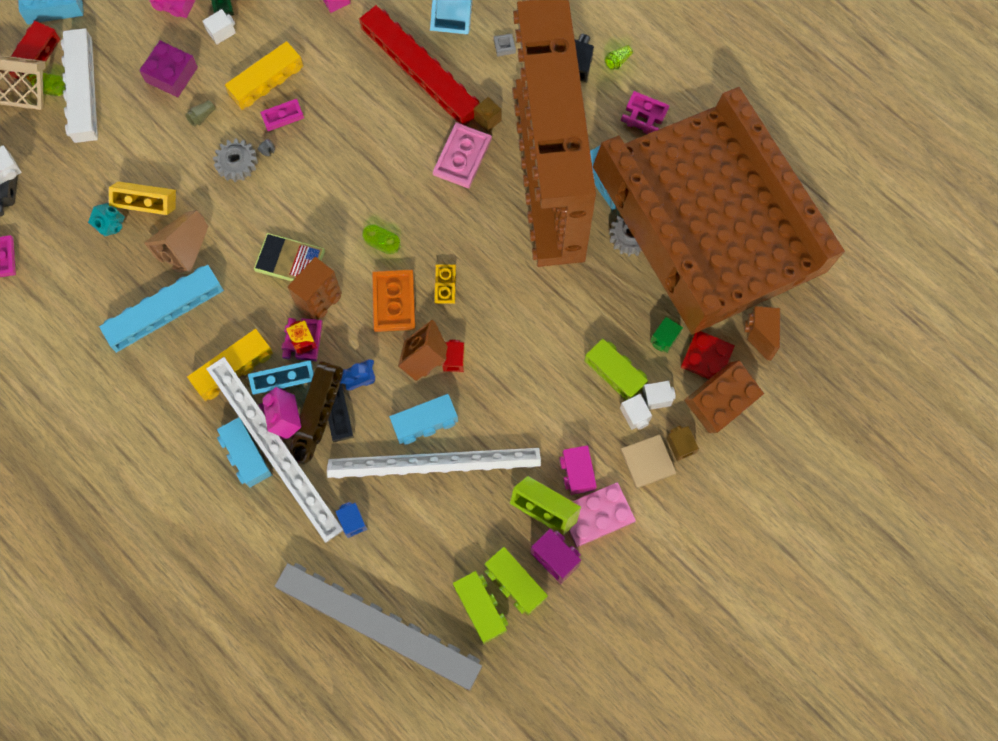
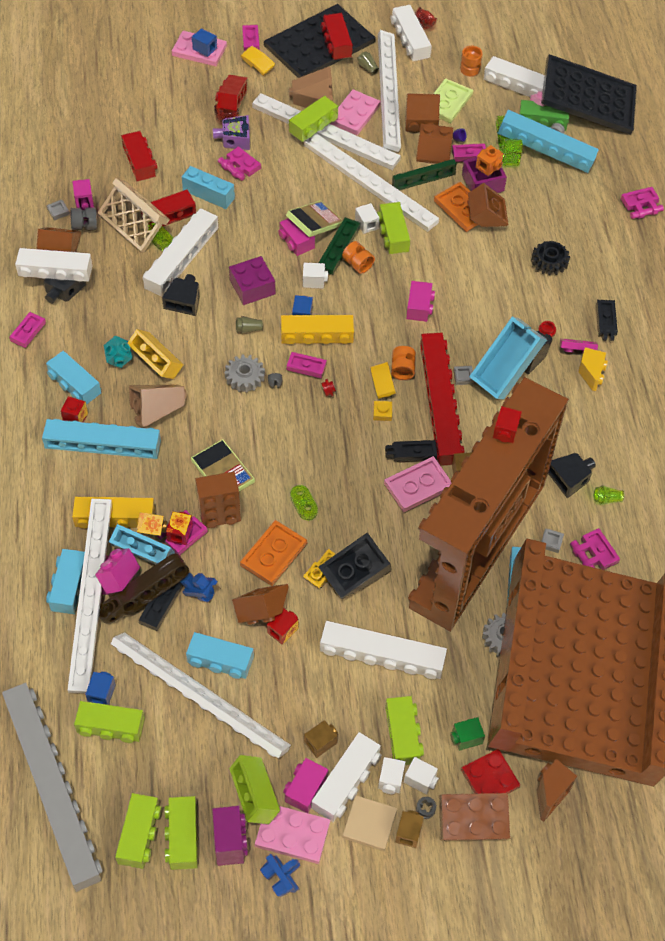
camera: 35 degrees right, 15 degrees down
(86, 271) = (73, 377): none -> medium azure brick
(115, 301) = (74, 410): none -> red brick
(118, 126) = (182, 295): none -> black torso
(234, 63) = (302, 305): none -> blue brick
(276, 352) = (151, 524): none -> brick
(318, 122) = (328, 387): none -> red plate
(358, 83) = (383, 380): none -> yellow slope
(364, 55) = (403, 363): none -> orange wheel
(379, 111) = (382, 411): none -> yellow plate
(382, 541) = (109, 721): none -> lime brick
(420, 31) = (462, 374): none -> light grey tile
(433, 129) = (411, 450): none -> black hinge
(472, 264) = (355, 566): none -> black slope
(541, 56) = (507, 424): none -> red brick
(548, 316) = (382, 650): none -> white brick
(559, 424) = (321, 738): none -> pearl gold brick
(603, 127) = (553, 540): none -> light grey tile
(603, 439) = (345, 777): none -> white brick
(607, 550) = (275, 866): none -> blue hips
(677, 410) = (429, 802): none -> dark grey bush

